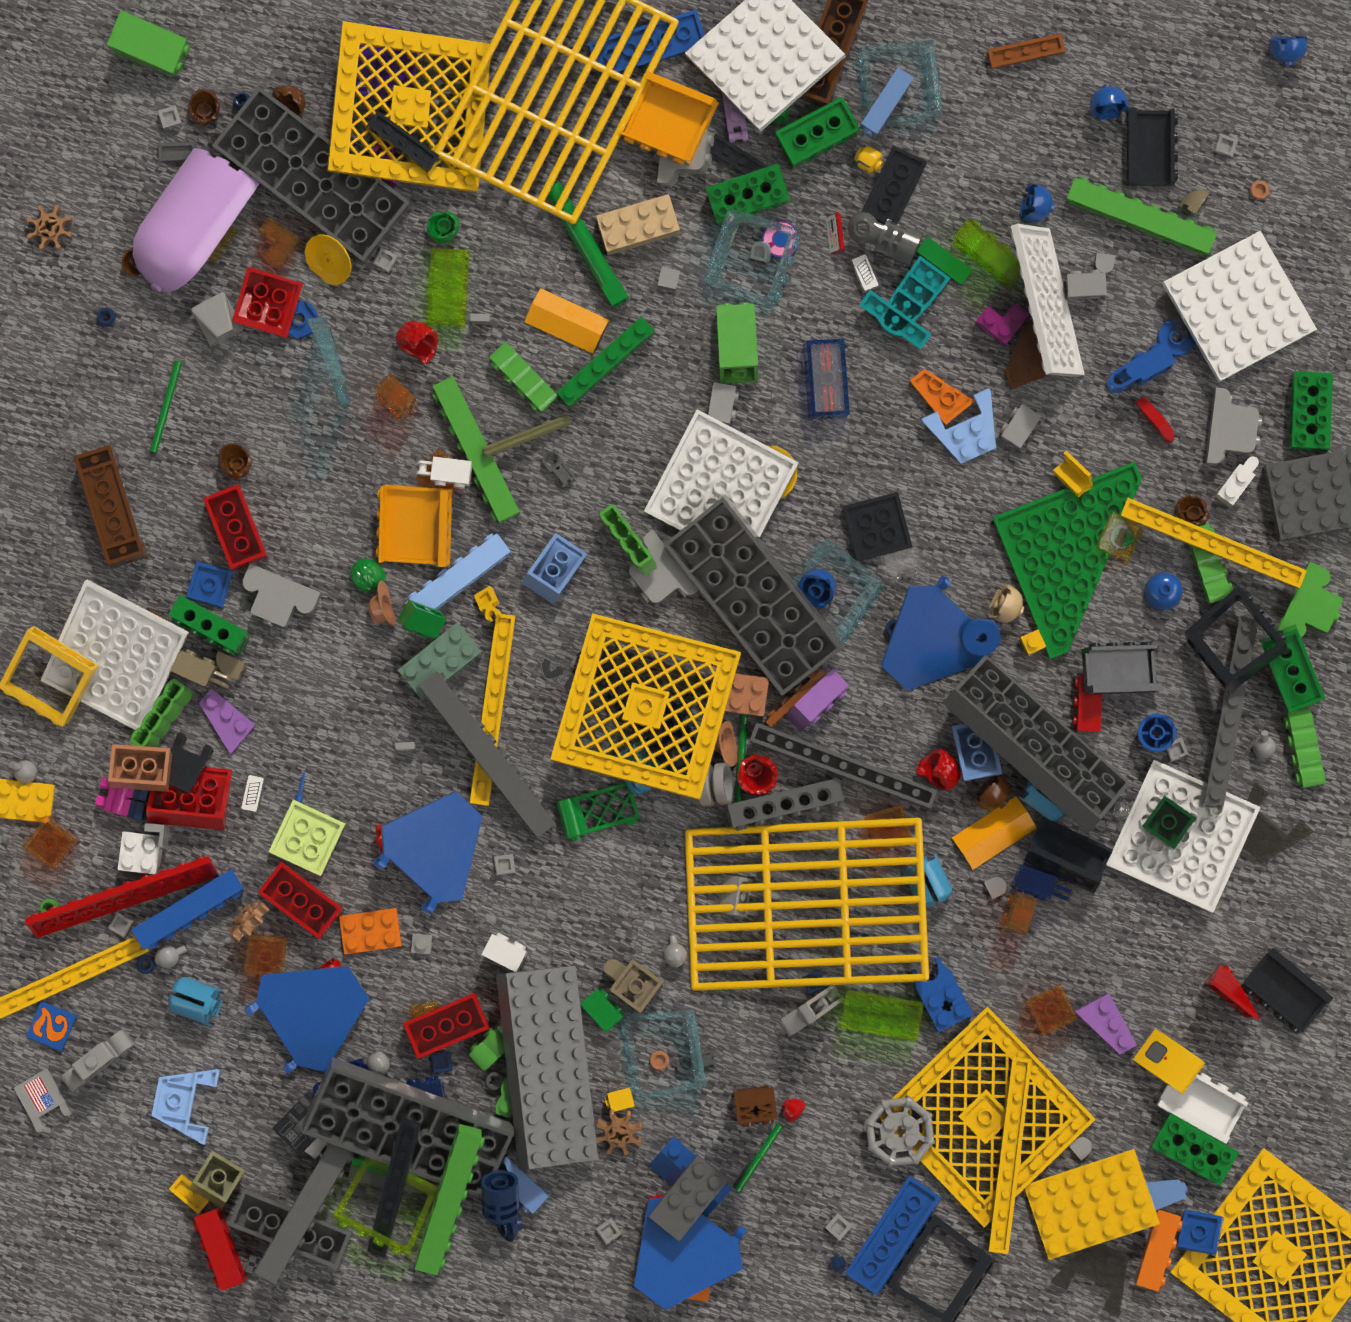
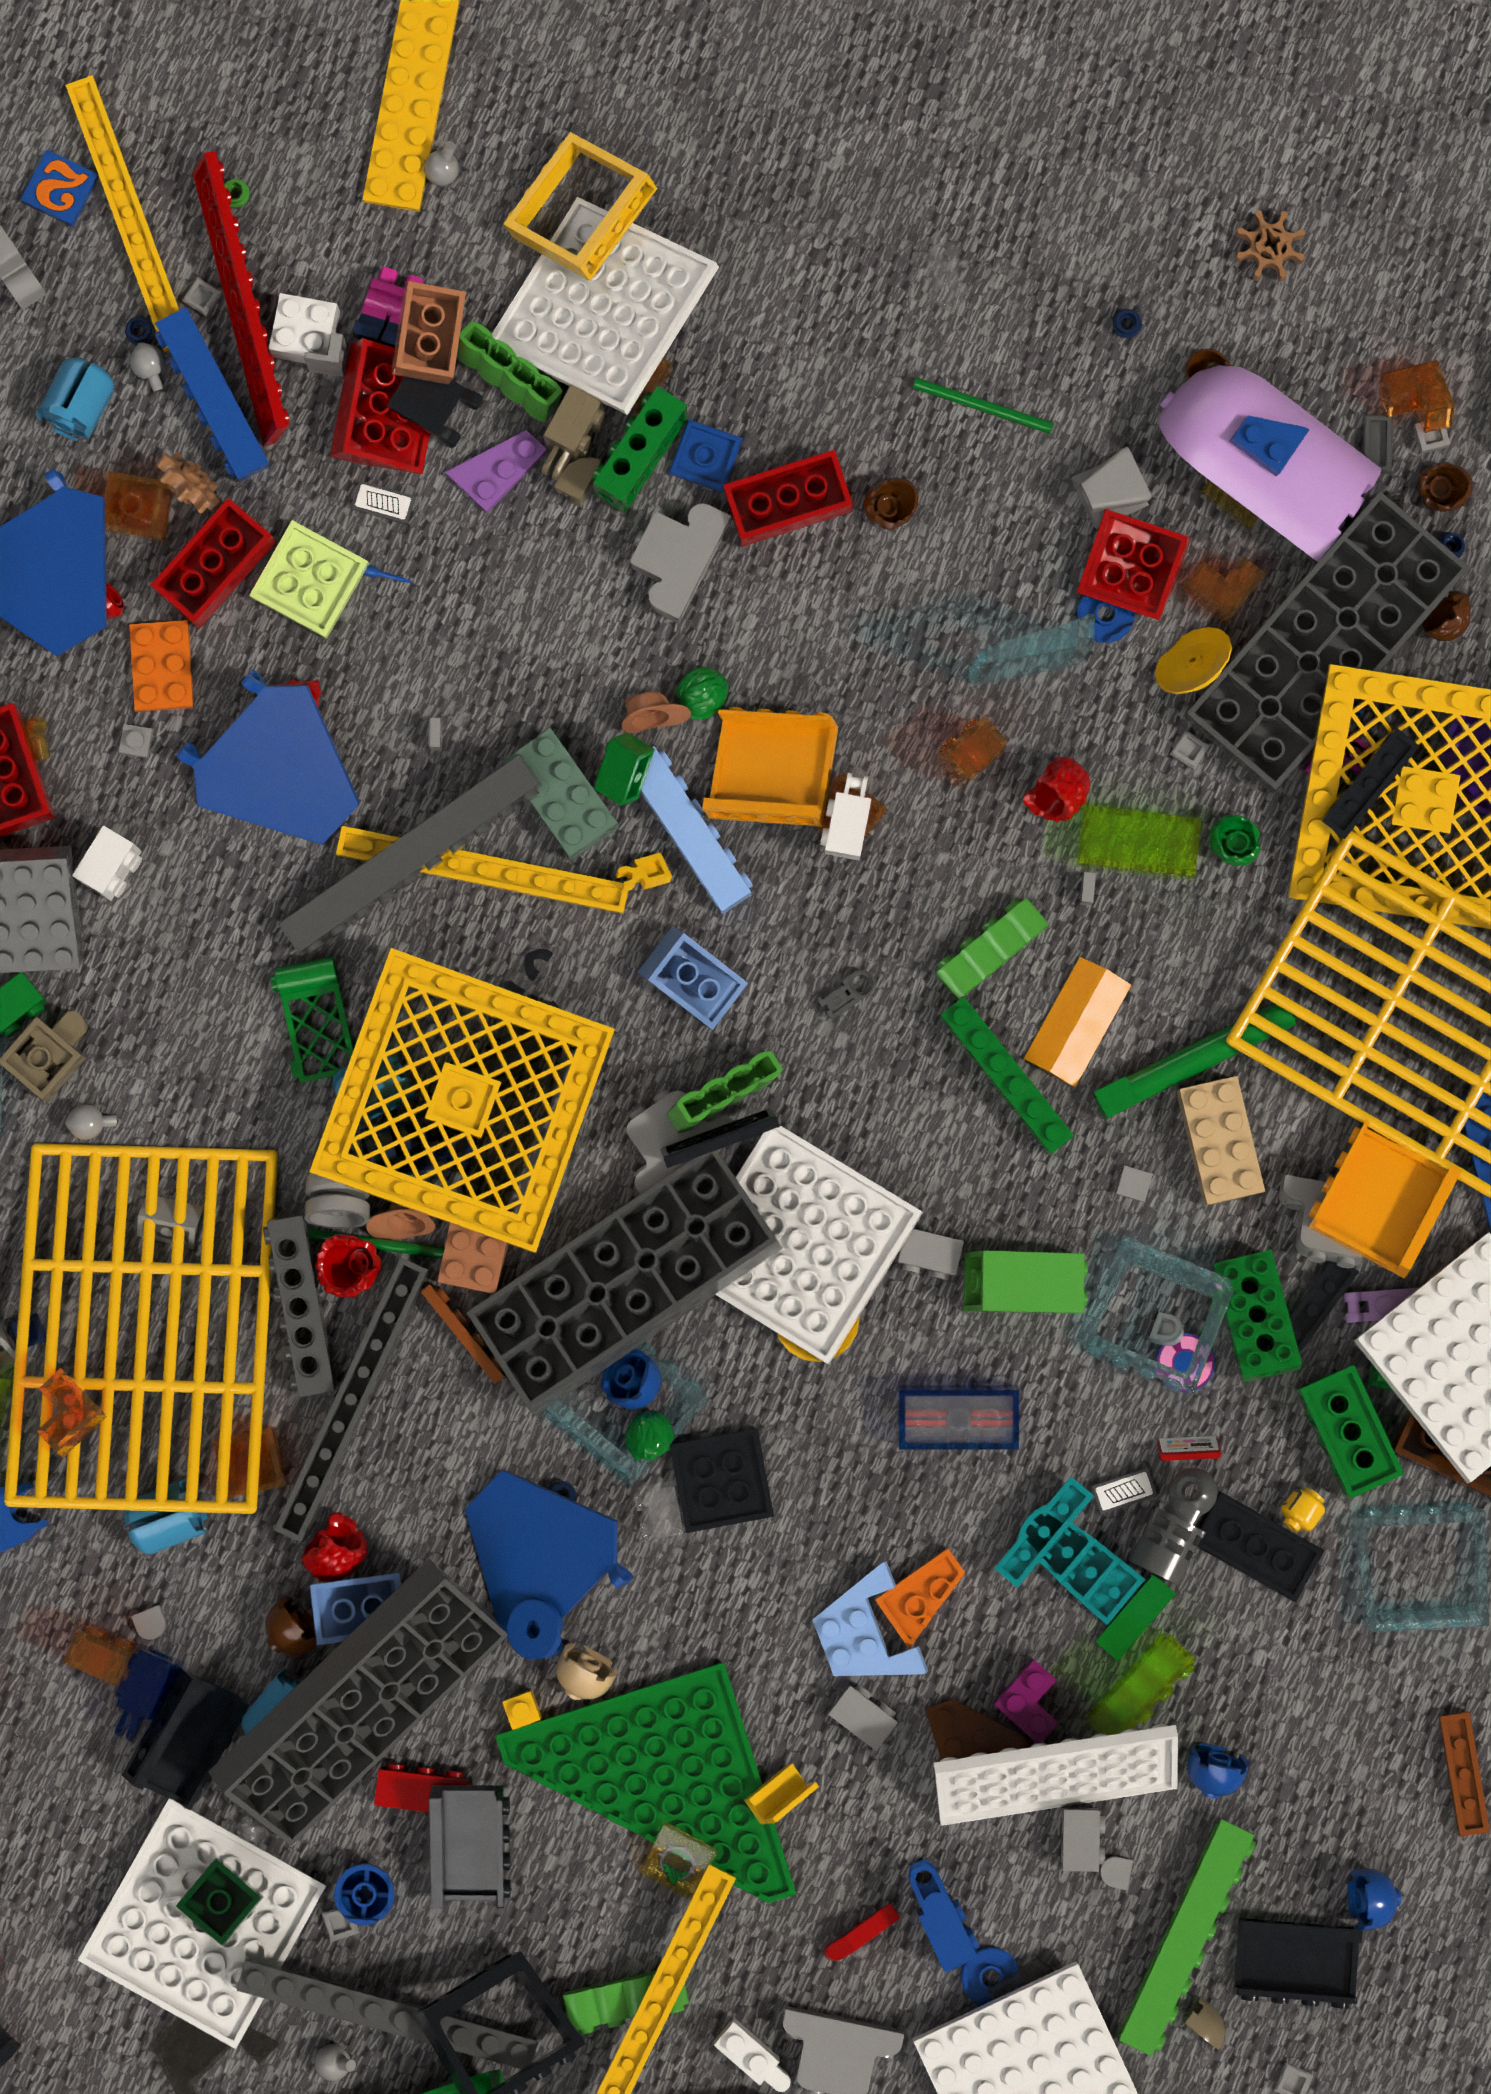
camera: 90 degrees right, 0 degrees up
(51, 842) = (330, 199): clear orange brick -> none
(110, 506) = (832, 310): reddish brown plate -> none
(141, 125) = (1419, 390): none -> clear orange brick
(184, 217) = (1268, 441): none -> blue wing
(472, 443) = (883, 869): bright green brick -> none
(504, 864) = (245, 873): light grey tile -> none
(526, 436) = (899, 946): olive axle -> none
(659, 539) = (719, 1137): none -> black tile
(817, 700) = (456, 1368): medium lavender wedge -> none
(852, 574) = (649, 1435): none -> green hair
(866, 937) = (75, 1415): none -> clear orange brick
(886, 103) = (1389, 1542): medium blue slope -> none
(994, 833) = (233, 1626): light orange slope -> none
(1163, 591) = (589, 1923): blue cylinder -> none
(1192, 510) = (711, 1979): reddish brown hair -> none

